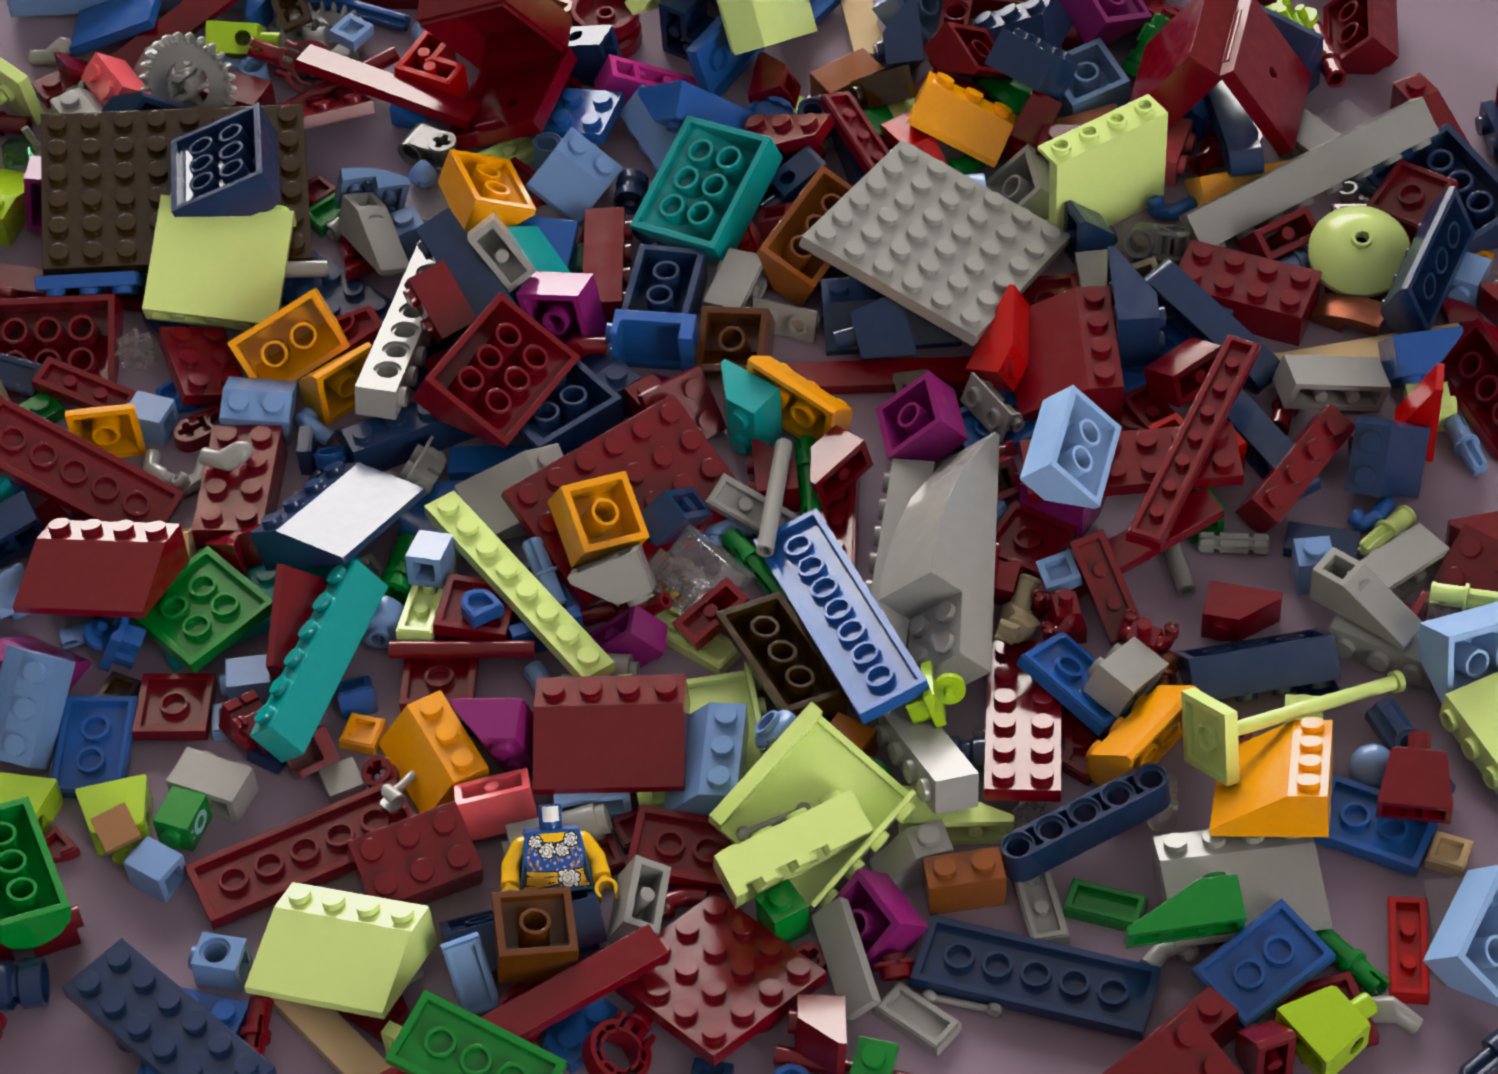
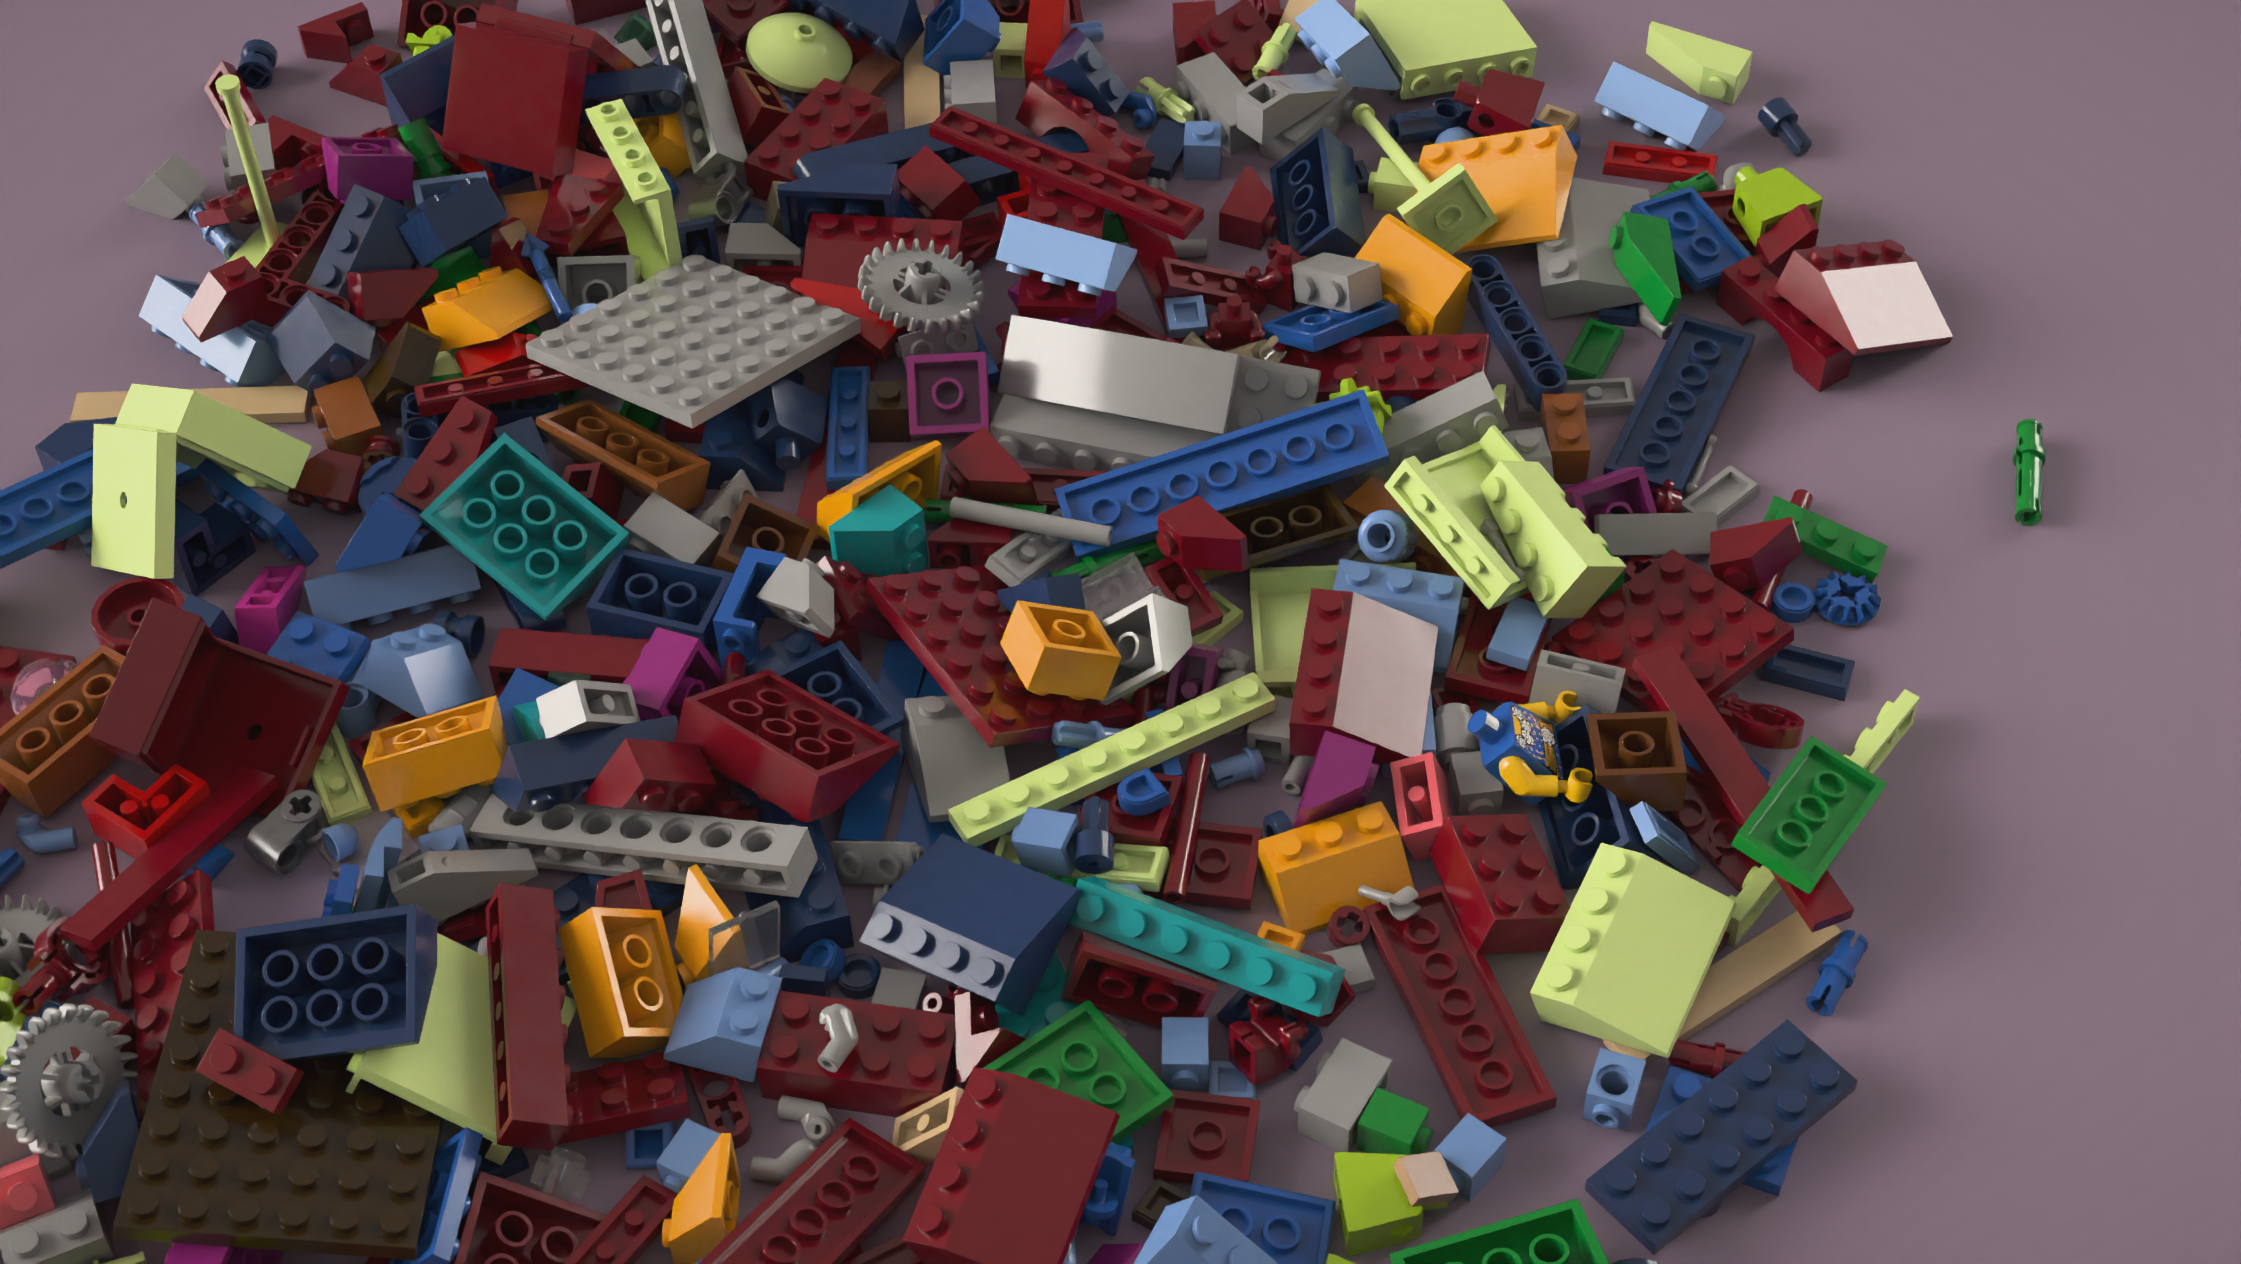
camera: 85 degrees left, 0 degrees up
(161, 146) = (250, 1071): none -> dark red plate
(234, 284) = (527, 1018): none -> dark red brick
(316, 393) = (745, 940): none -> clear piece
(329, 171) = (341, 893): none -> blue plate
(351, 32) = (33, 896): medium blue plate -> none
(419, 583) = (1094, 843): none -> dark blue piece
(648, 359) = (800, 596): none -> light grey slope
(653, 667) = (1234, 661): none -> light grey hand
(690, 852) = (1517, 634): none -> medium blue tile
(747, 596) = (1201, 538): none -> dark red slope
(877, 375) = (848, 426): none -> blue tile
(1010, 345) = (920, 279): none -> light grey gear
(1030, 127) = (535, 250): none -> blue piece

